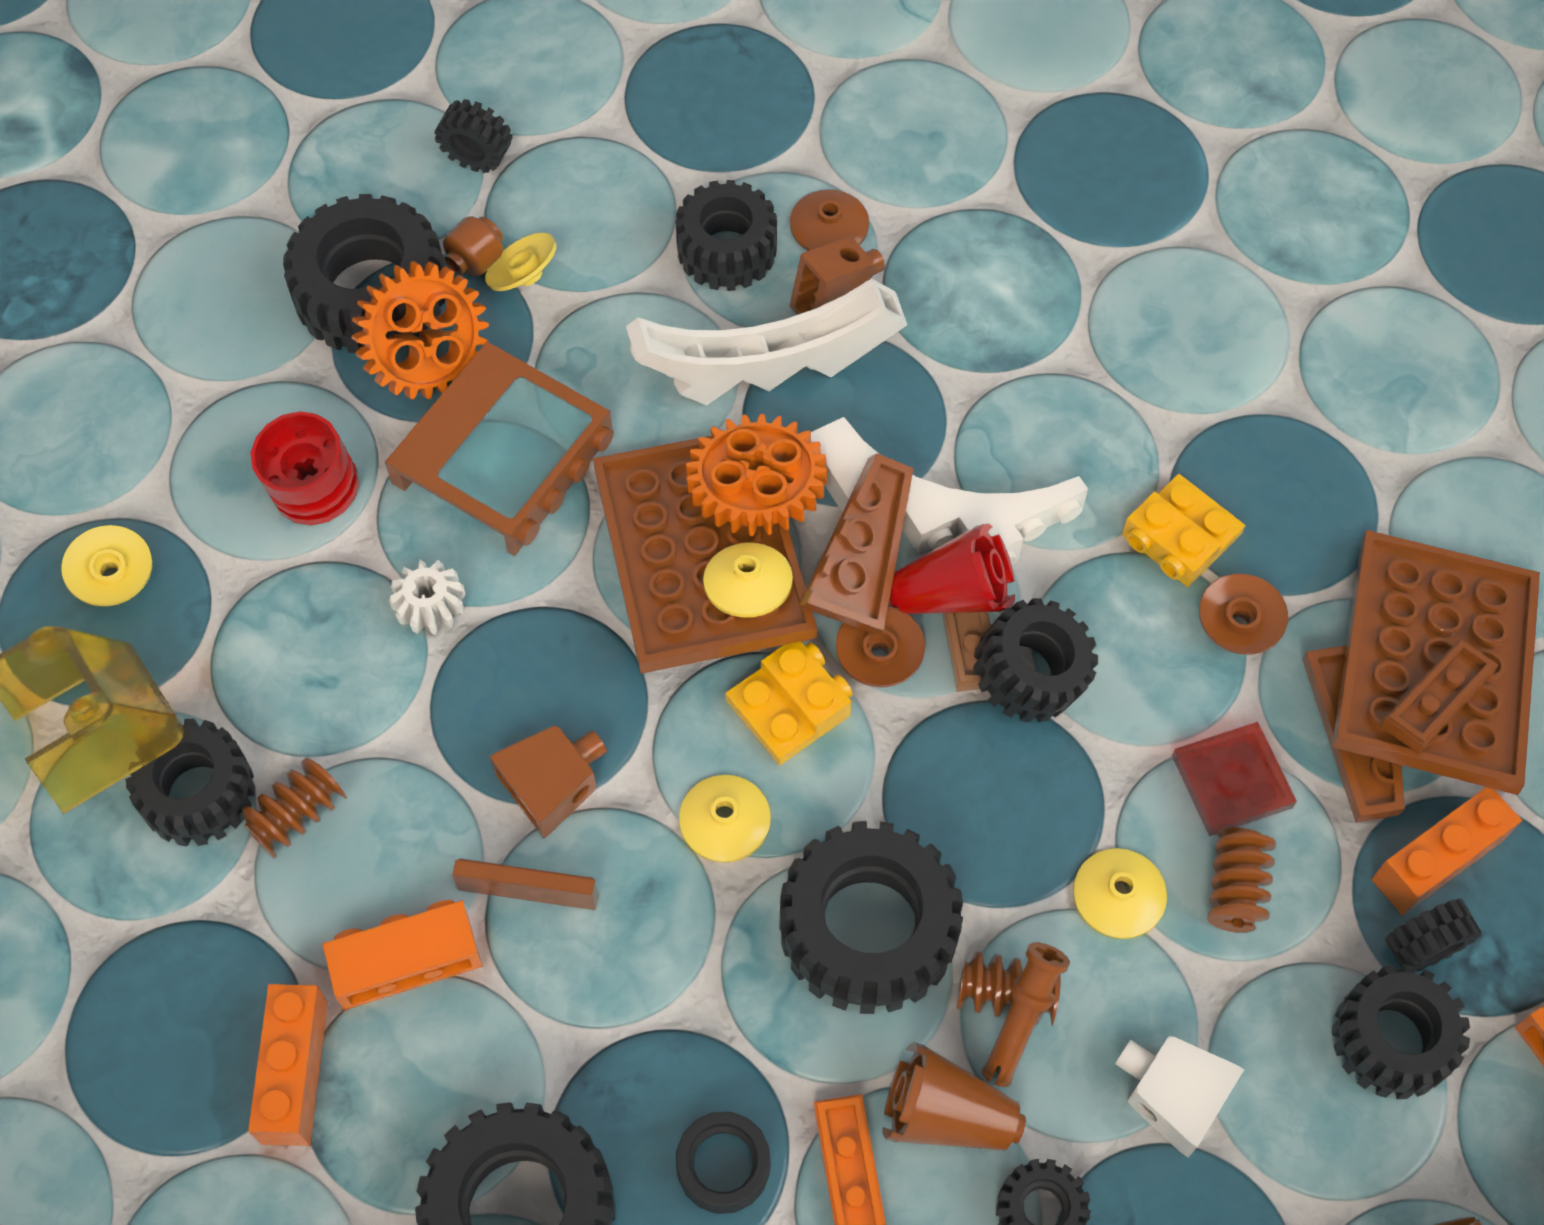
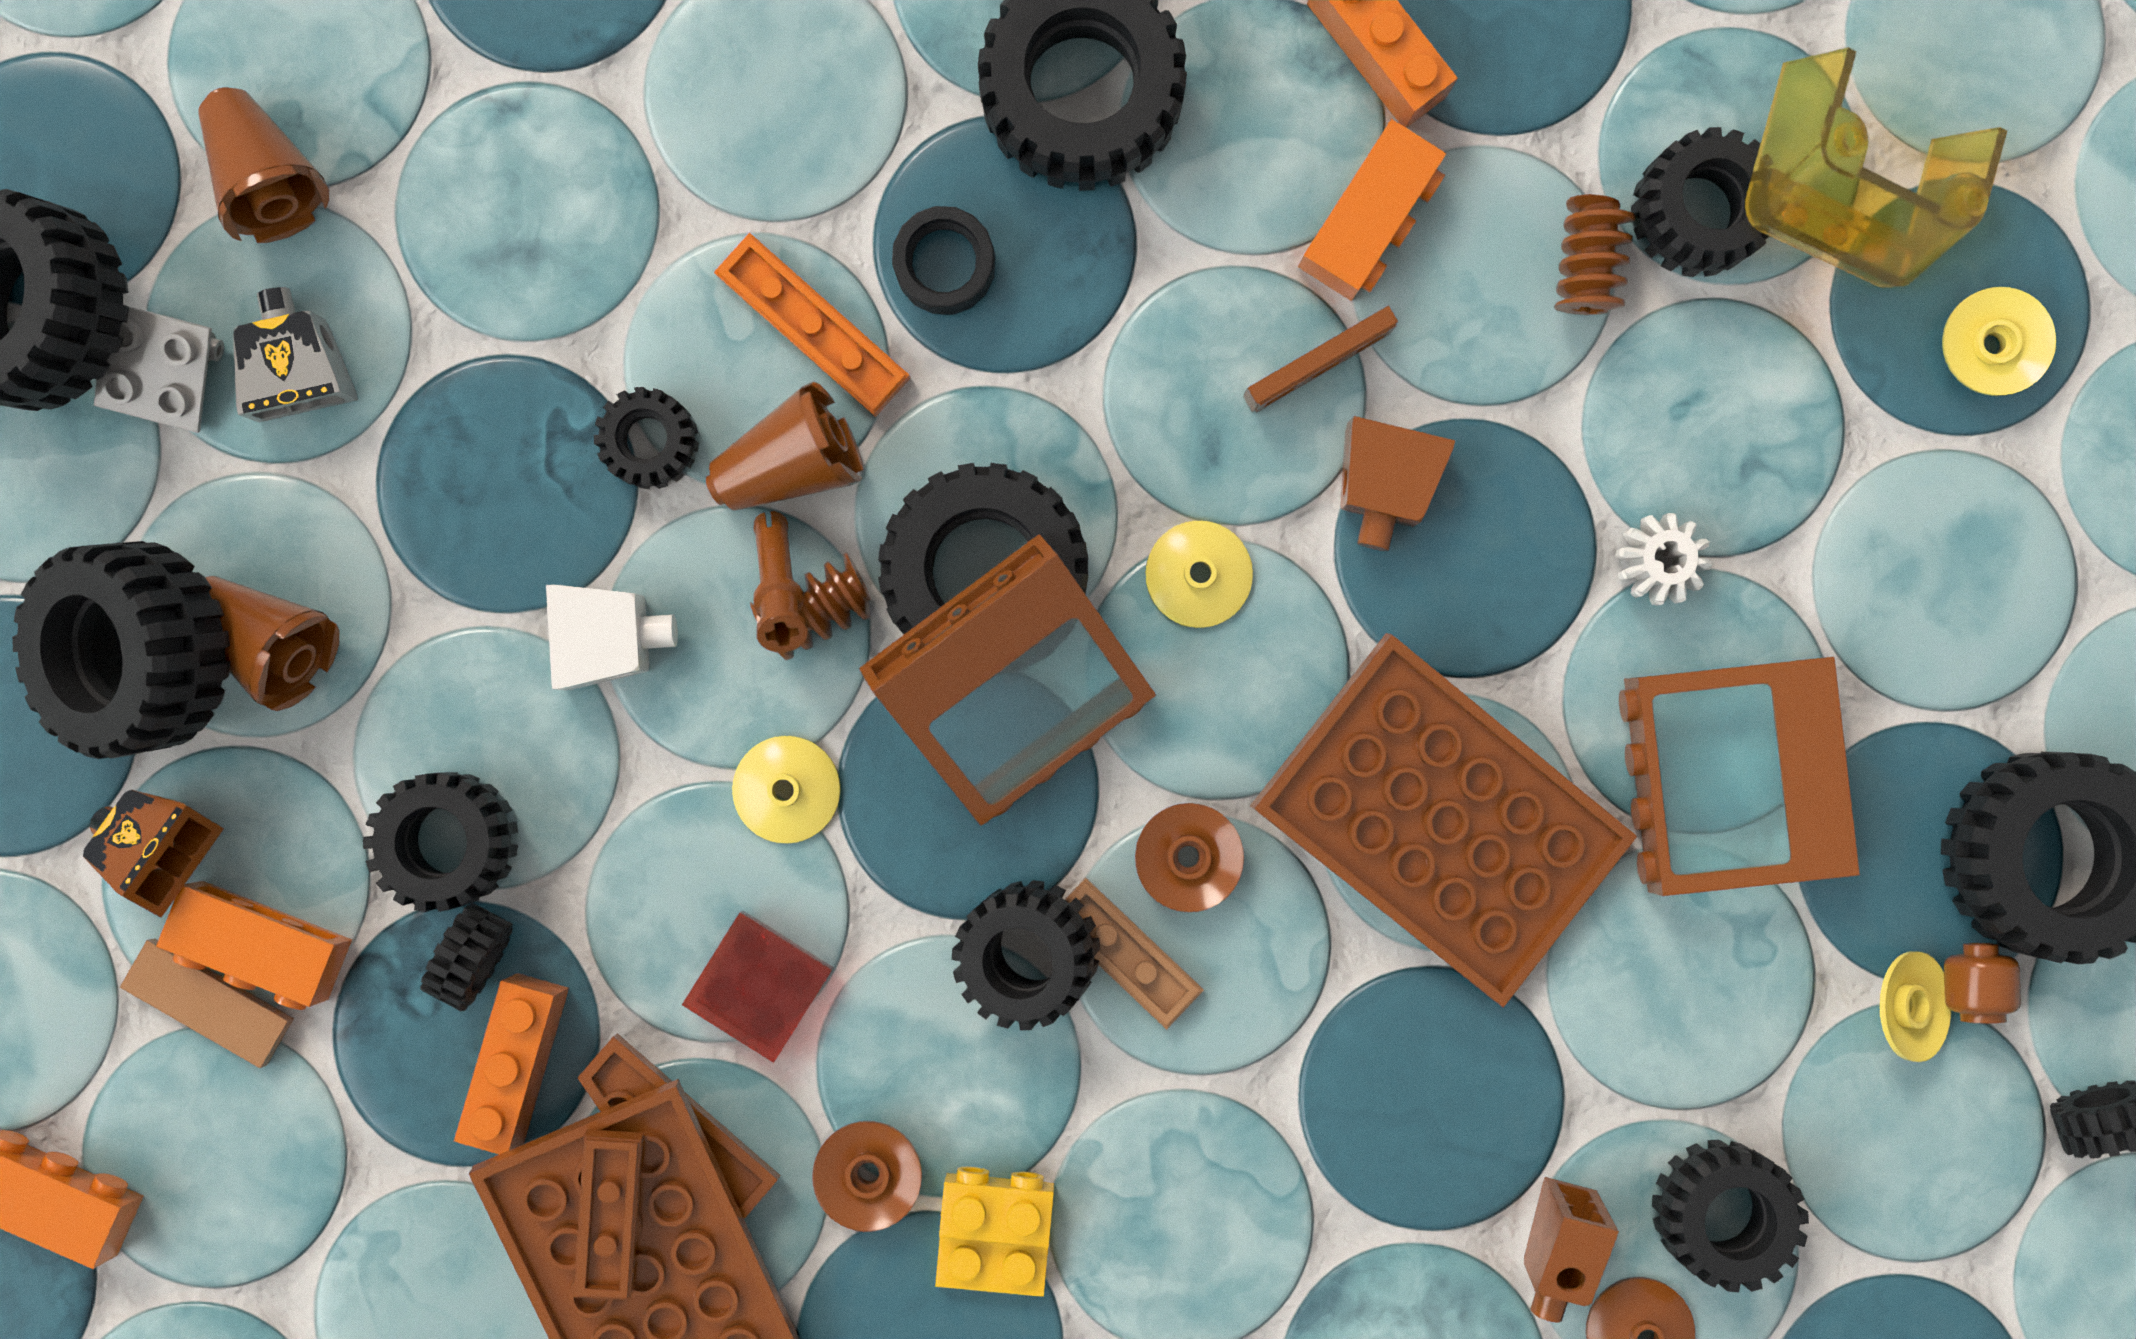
camera: 140 degrees right, 25 degrees up
(305, 468) = (1935, 581): red wheel -> none
(419, 293) = (1968, 852): orange gear -> none
(748, 592) = (1339, 804): light yellow dish -> none
(756, 474) = (1465, 983): orange gear -> none
(766, 355) = (1561, 1097): white arch -> none
(791, 700) = (1230, 733): yellow plate -> none
(862, 554) = (1277, 930): dark orange wing -> none
(914, 825) = (1008, 680): none -> panel
(942, 513) = (1188, 1076): white arch -> none
(957, 577) = (1162, 979): red cone -> none
(1238, 879) = (679, 882): dark orange piece -> none

